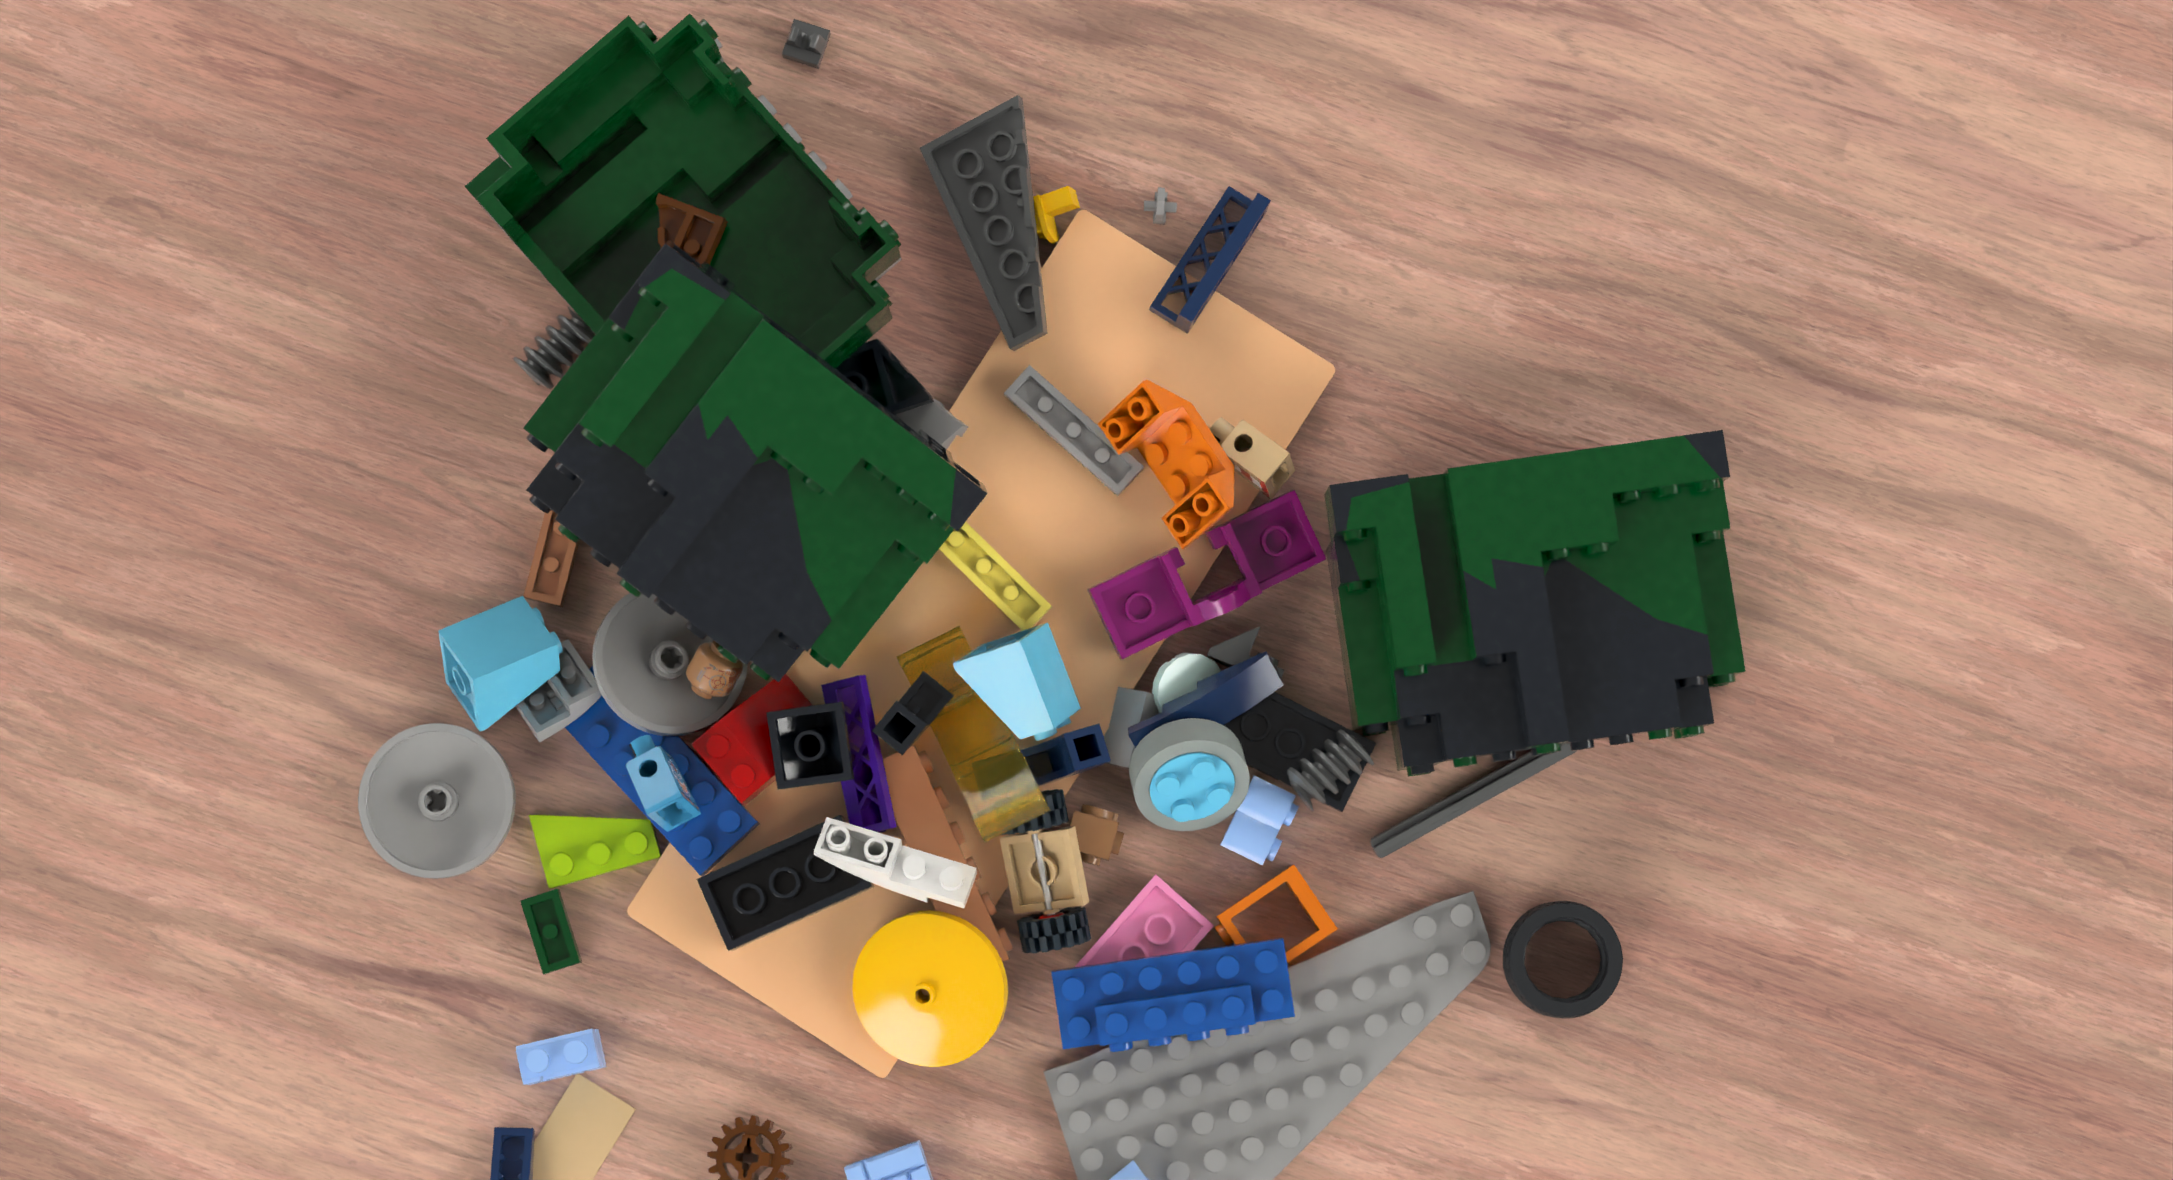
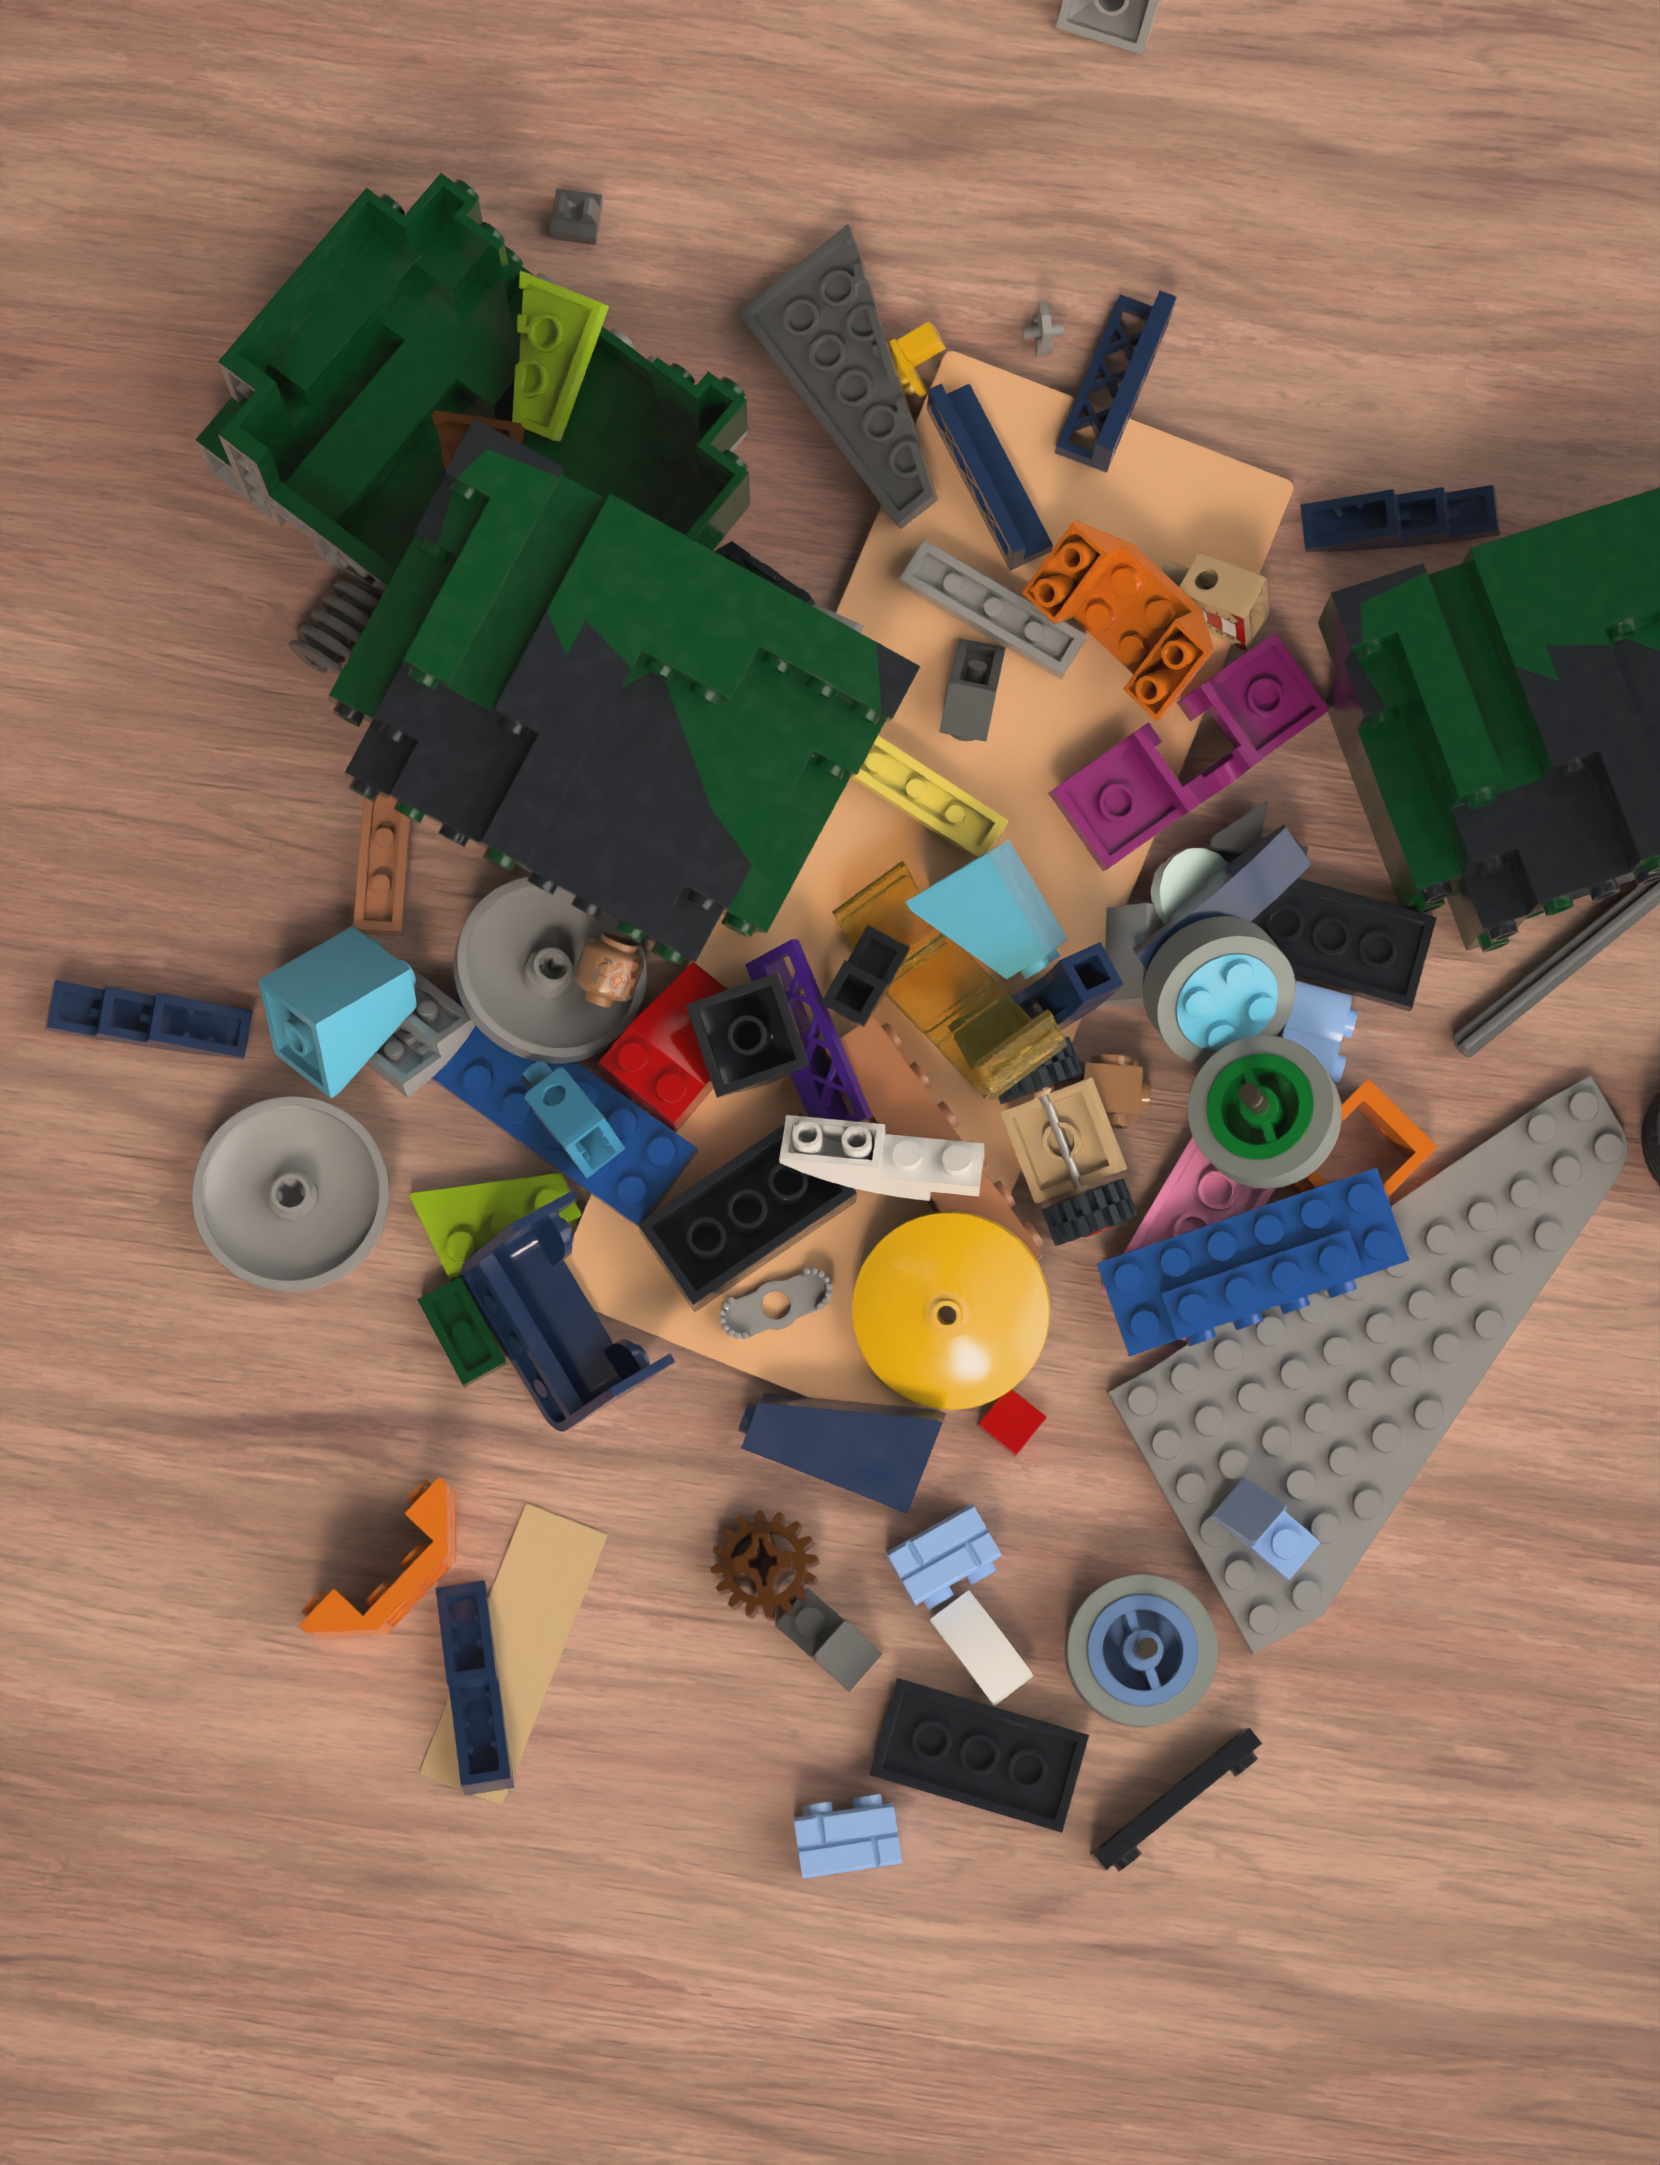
camera: 15 degrees left, 5 degrees down
(352, 639) = (148, 1020): none -> dark blue slope
(419, 1139) = (338, 1615): none -> orange slope
(560, 1056) = (503, 1482): light blue brick -> none
(620, 941) = (549, 1322): none -> dark blue windscreen
(761, 165) = (555, 350): none -> lime wing
(772, 960) = (806, 1294): none -> light grey piece
(830, 1075) = (846, 1443): none -> dark blue slope
(964, 1080) = (1012, 1422): none -> red tile
(1044, 493) = (972, 690): none -> dark grey slope
(1093, 319) = (988, 475): none -> dark blue fence
(1204, 878) = (1264, 1111): none -> wheel
(1328, 768) = (1385, 952): dark grey piece -> none
(1415, 412) = (1400, 520): none -> dark blue slope

